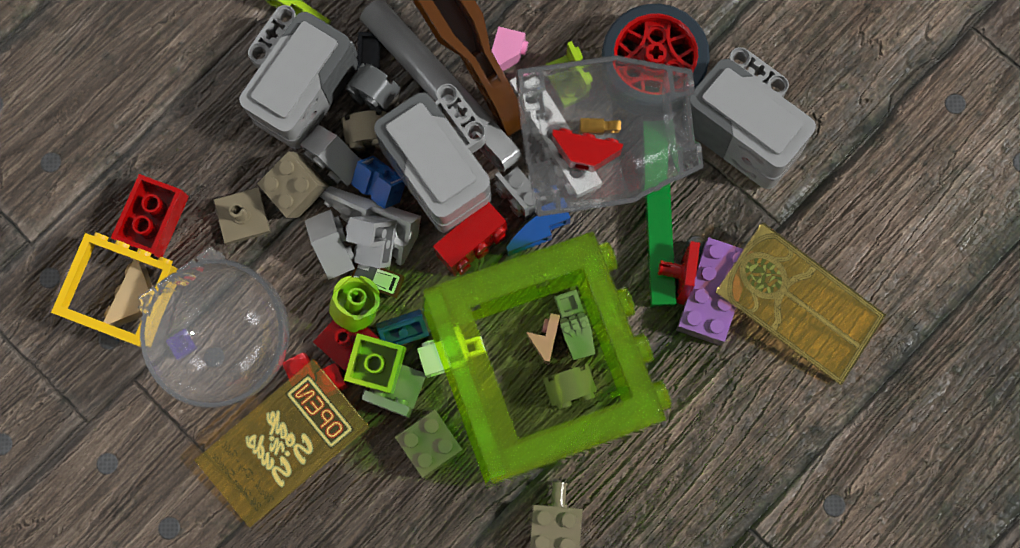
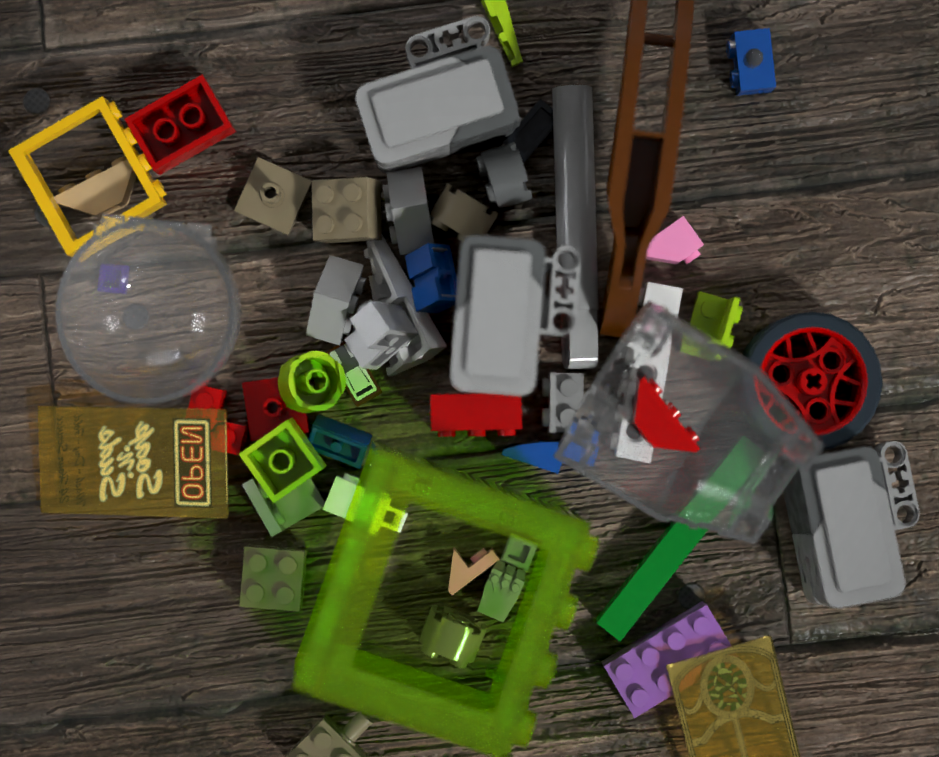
camera: 30 degrees right, 10 degrees up
(598, 126) = (692, 407): pearl gold bar -> none
(684, 272) = (654, 620): red tile -> none

